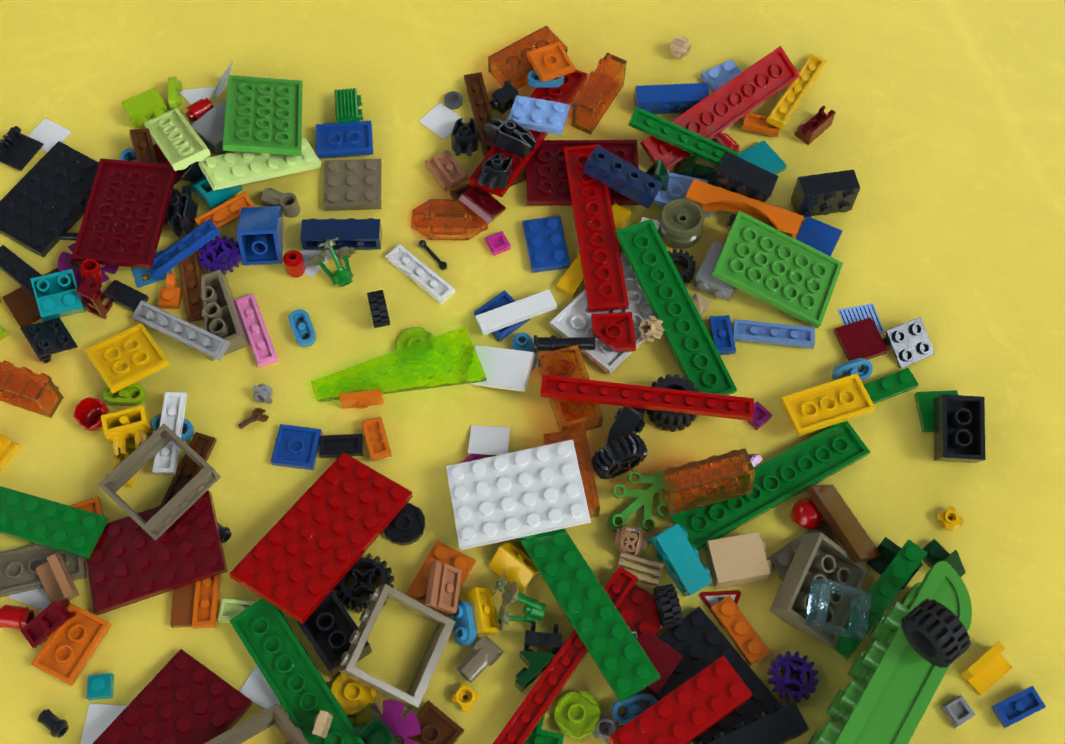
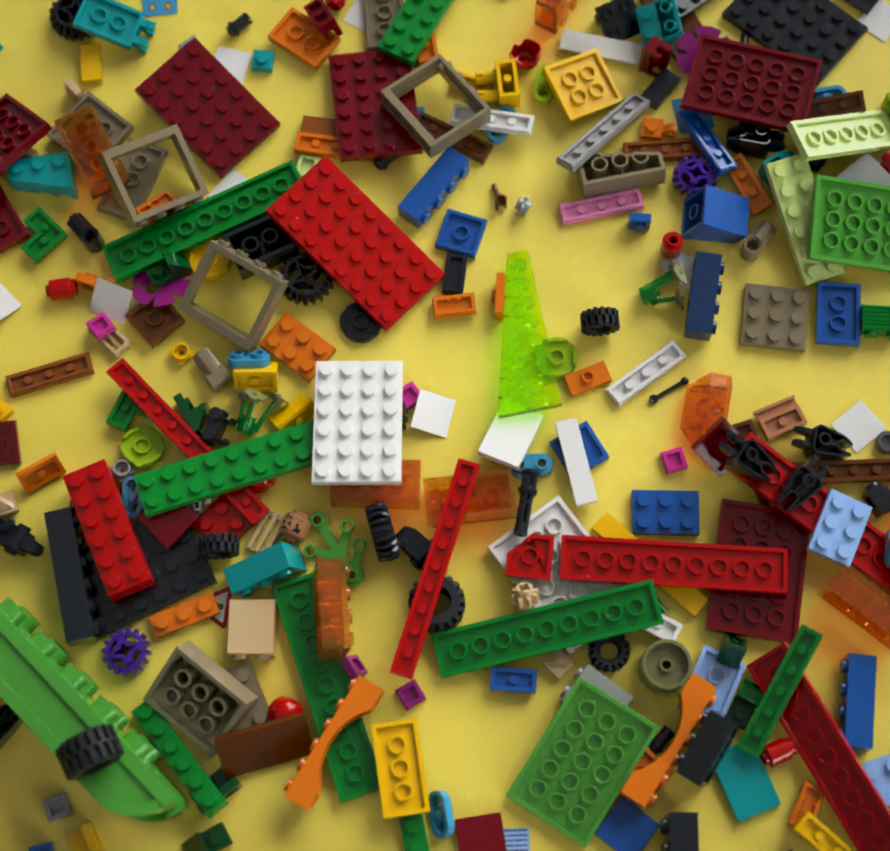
camera: 105 degrees right, 10 degrees up
(57, 579) = (363, 27): medium nougat panel -> none
(77, 360) = (608, 48): none -> white tile
(90, 267) = (681, 52): red brick -> none
(250, 478) = (434, 187): none -> blue brick
(271, 293) = (639, 221): none -> blue plate
(302, 329) = (592, 247): dark azure plate -> none
(322, 724) = (178, 225): tan tile -> none
(432, 317) = (587, 378): none -> orange plate
(443, 587) = (279, 341): nougat plate -> none
(622, 178) = (730, 605): dark blue brick -> none
(774, 333) = (505, 739): medium blue plate -> none
(819, 603) = (178, 681): clear light blue window -> none
(867, 476) = (360, 701): none -> orange arch

